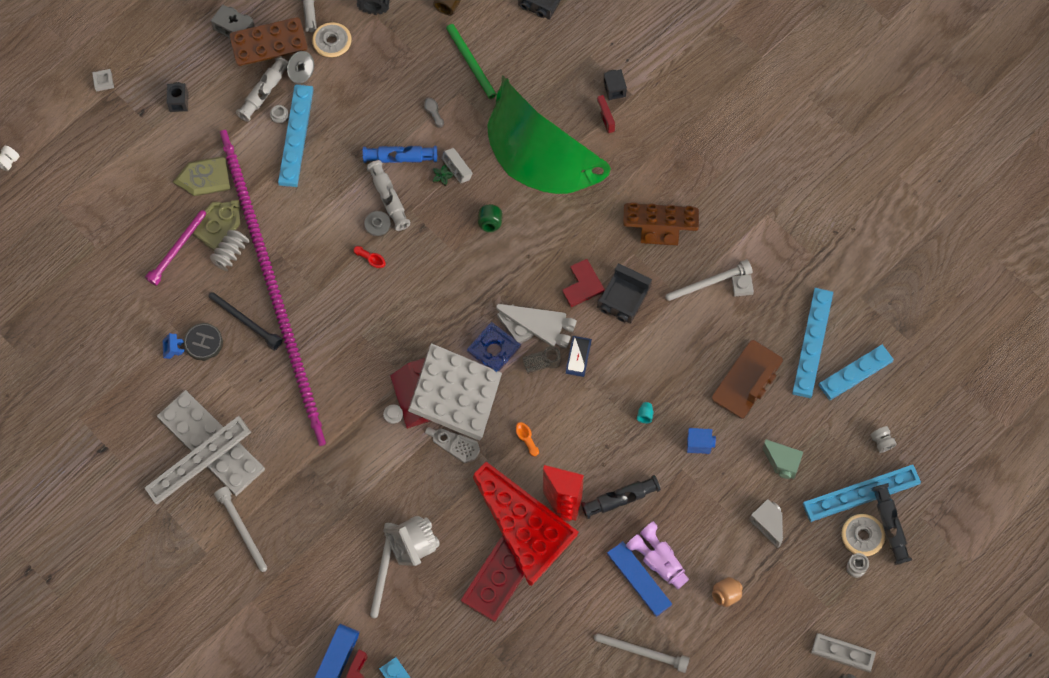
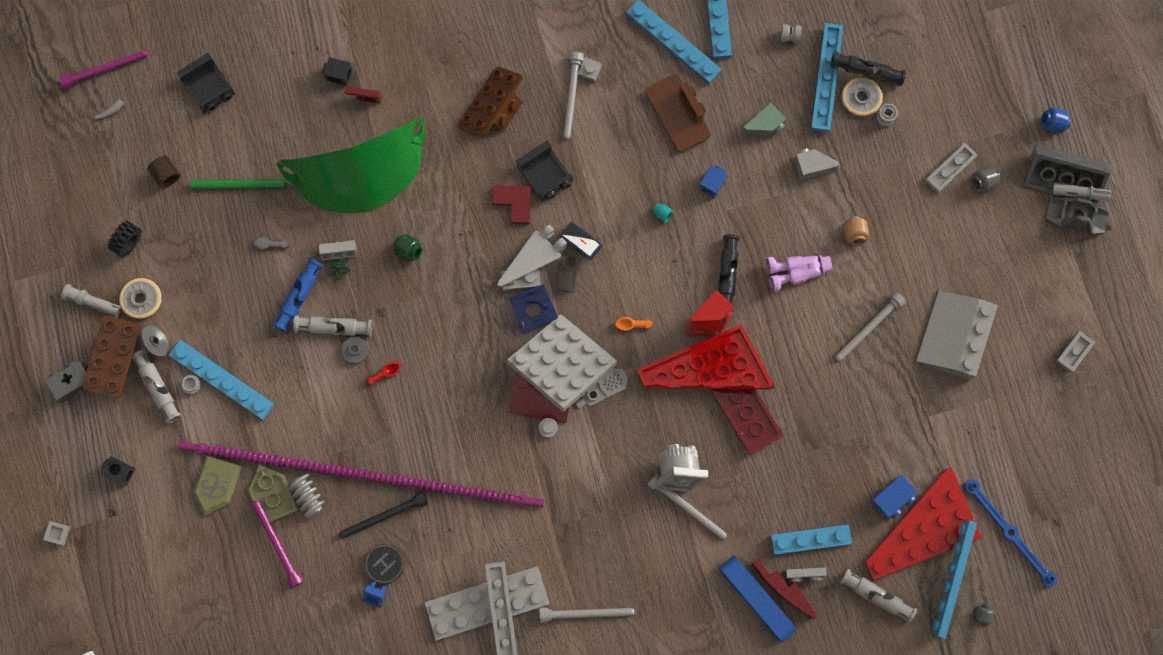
camera: 65 degrees left, 10 degrees up
(639, 579) = (806, 296): blue tile -> none

